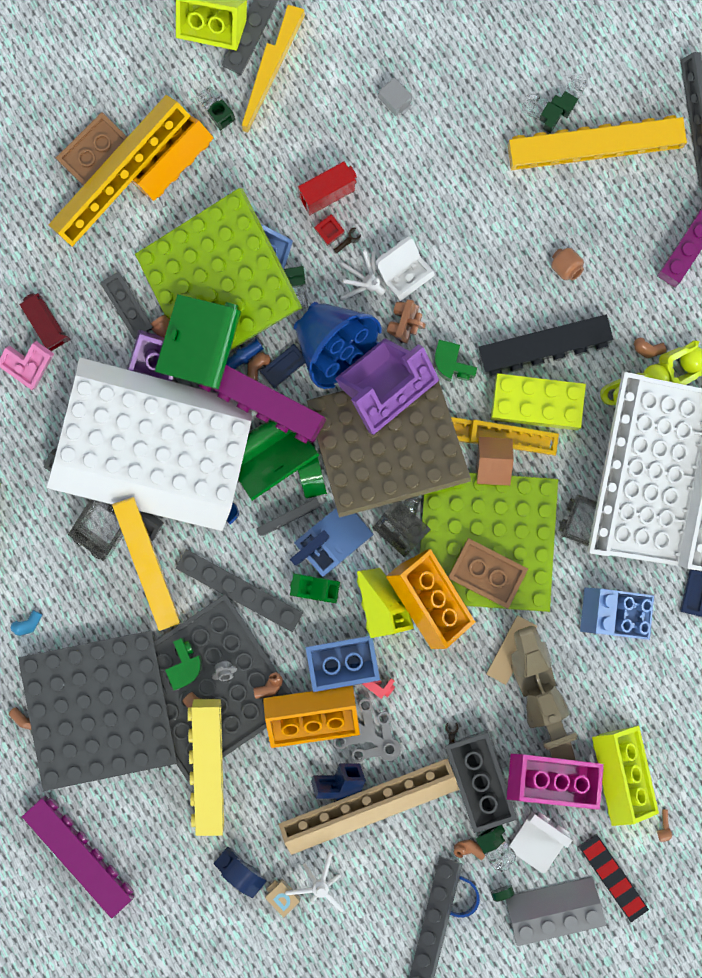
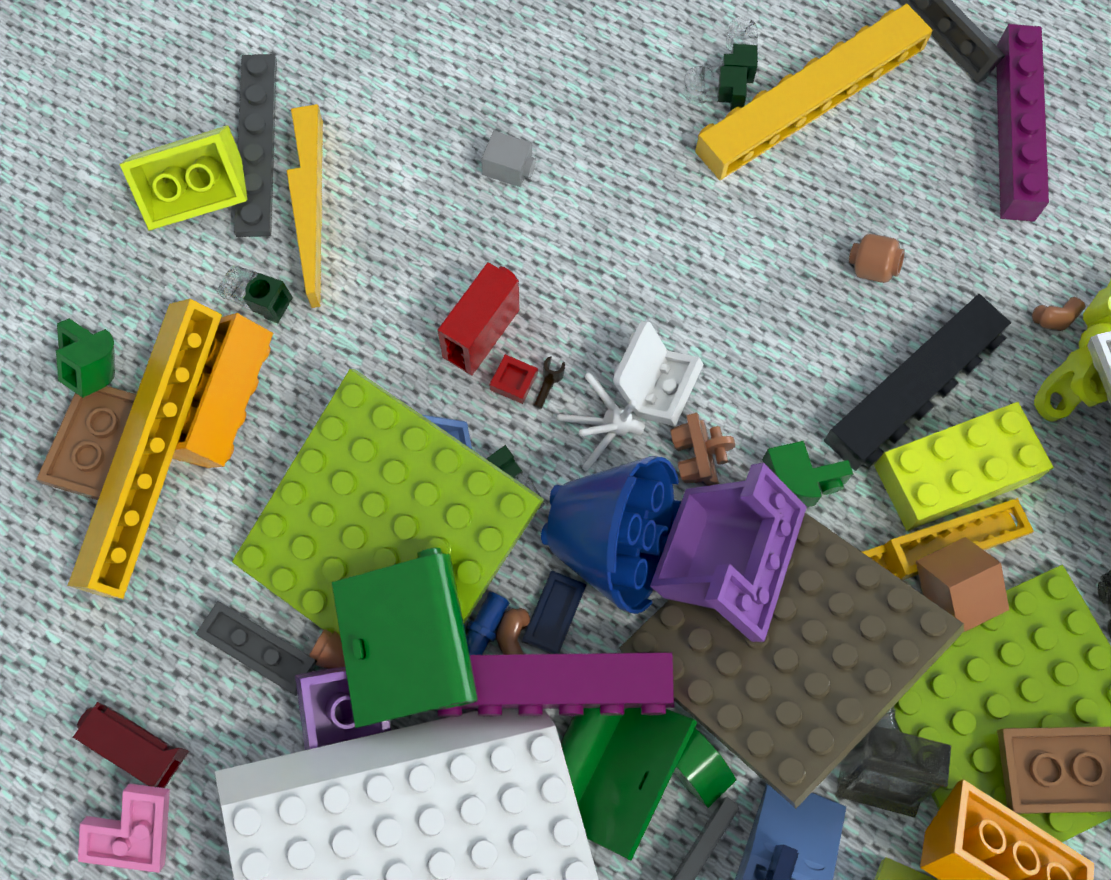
camera: 30 degrees left, 15 degrees down
(109, 103) = (84, 358): none -> green brick

